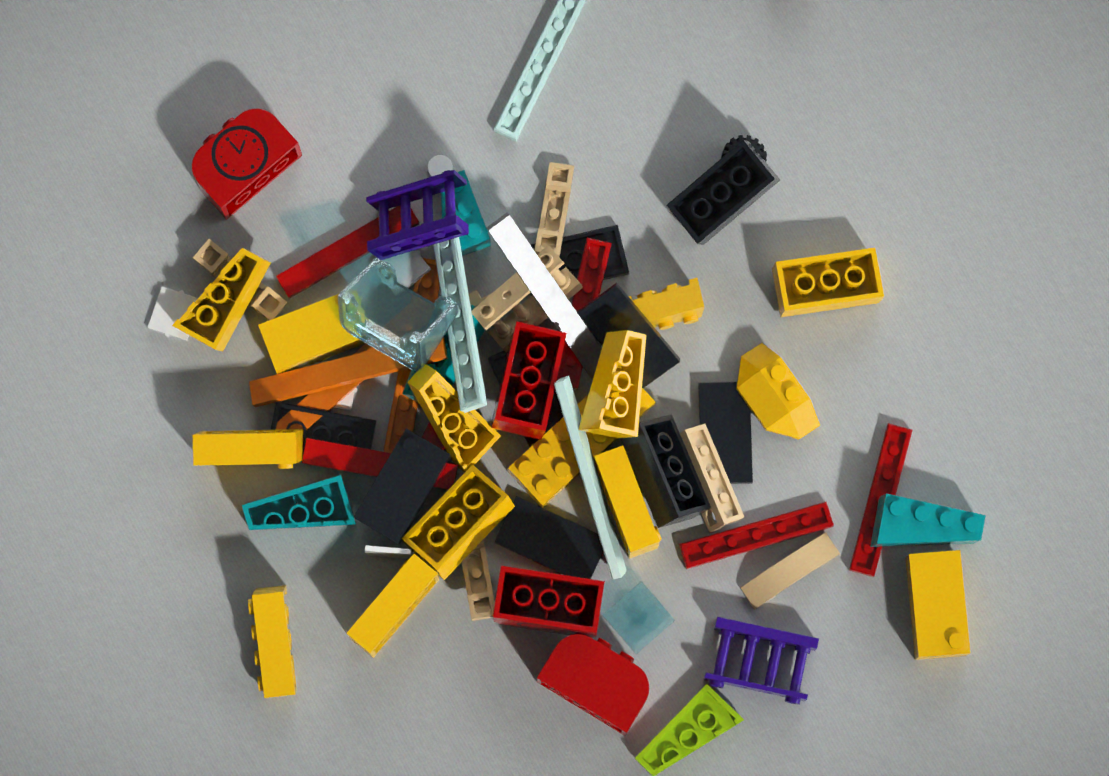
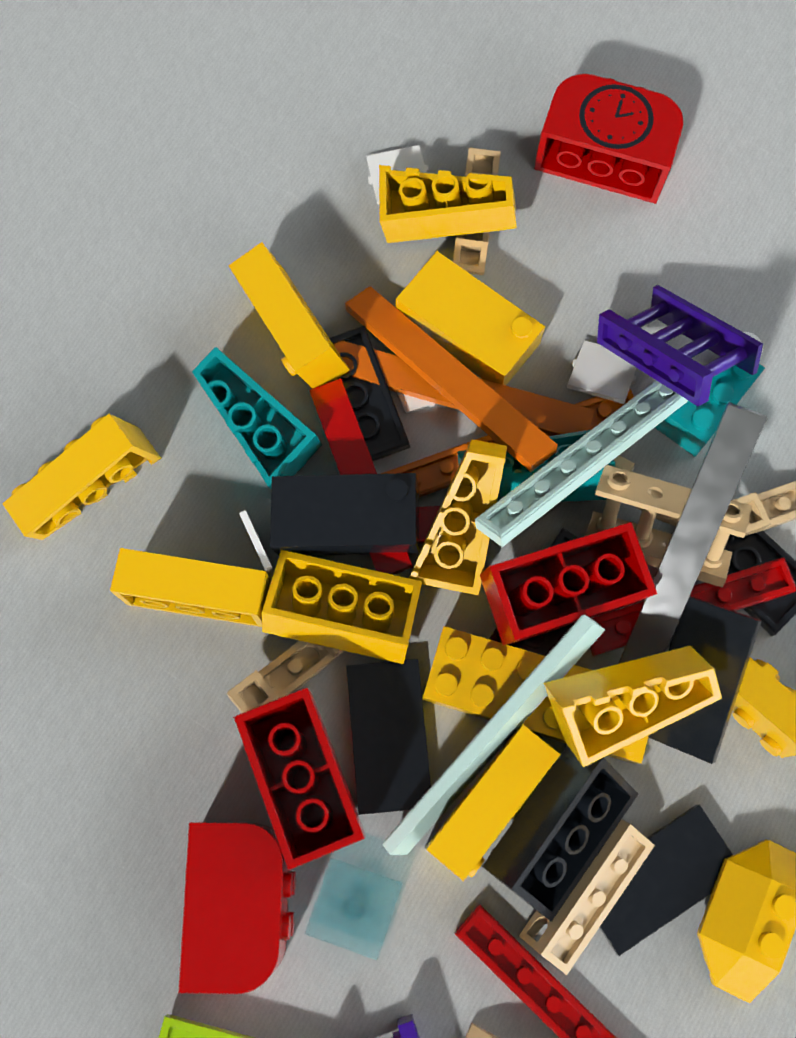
camera: 60 degrees right, 5 degrees down
(337, 255) = (561, 292): red tile -> none
(393, 316) = (541, 378): clear light blue windscreen -> none

